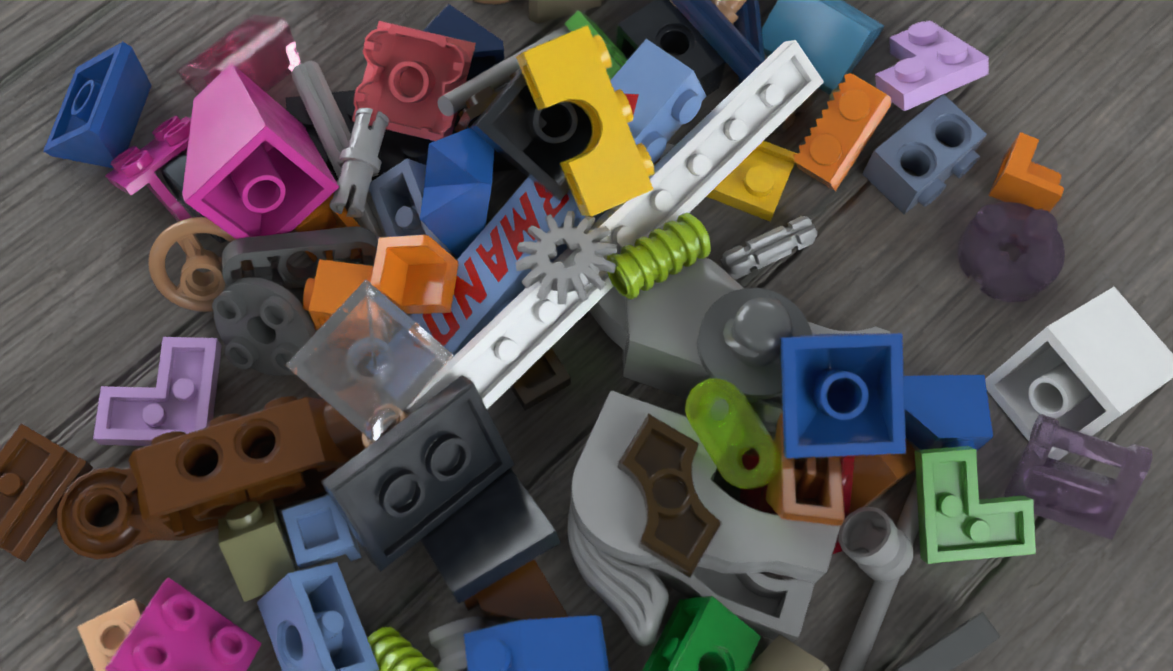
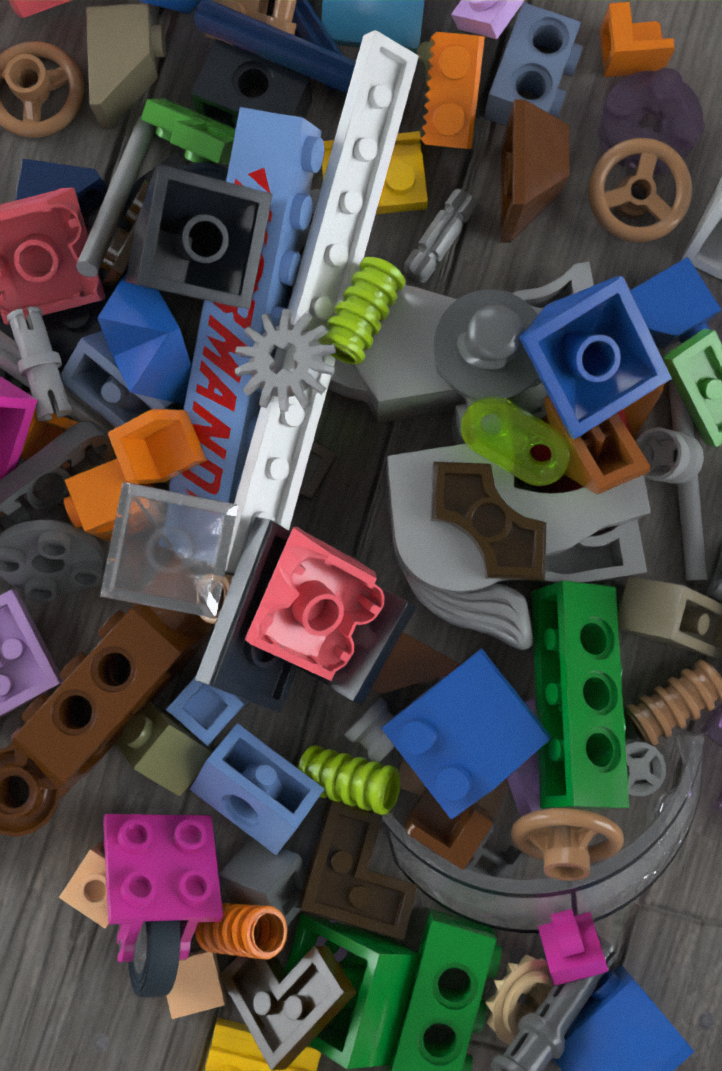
camera: 25 degrees left, 15 degrees up
(467, 483) = (315, 605): none -> coral slope
(575, 72) = (280, 254): yellow arch -> none
(882, 229) = (531, 166): none -> reddish brown slope
(957, 312) = (631, 207): none -> medium nougat piece

